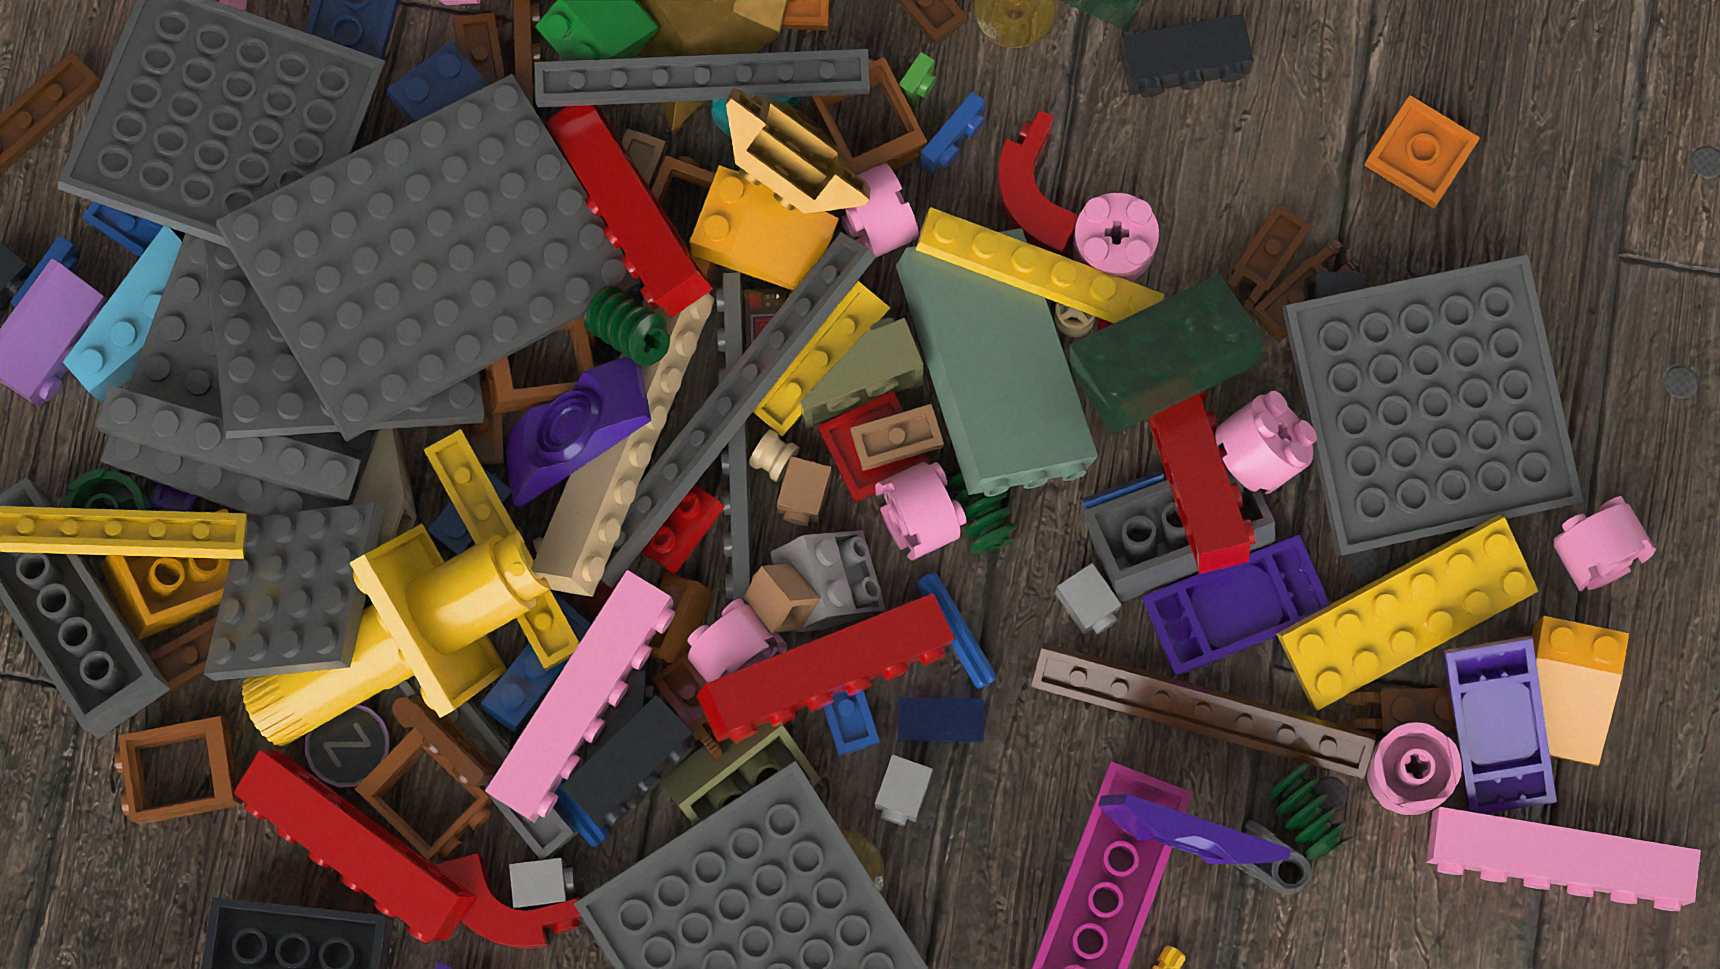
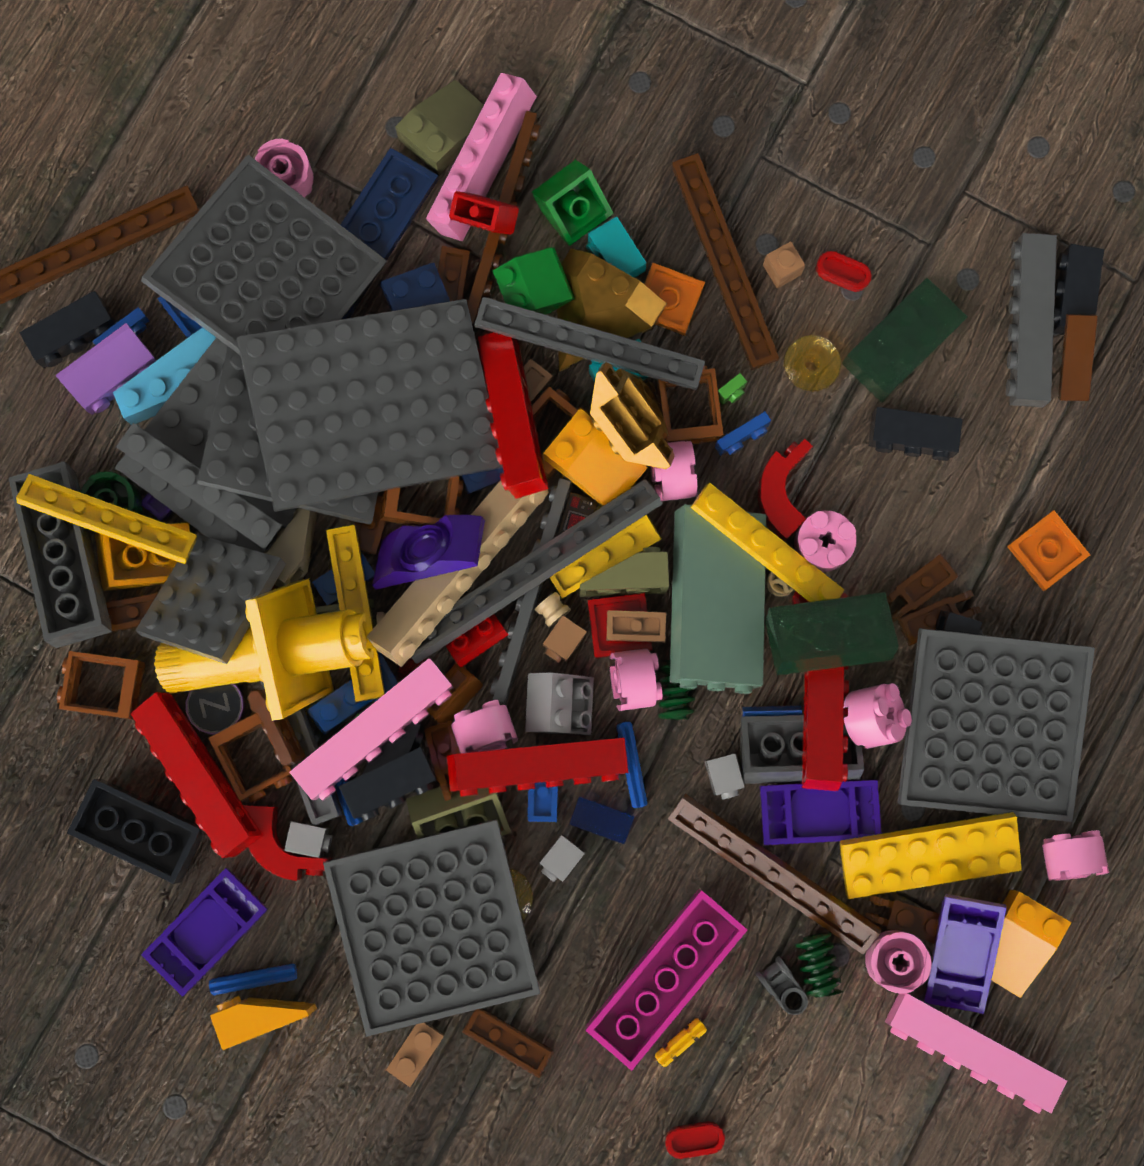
camera: 15 degrees right, 5 degrees up
(627, 325) = (484, 494): dark green piece -> none
(781, 597) = (524, 708): medium nougat brick -> none
(1189, 833) = (741, 965): dark purple slope -> none

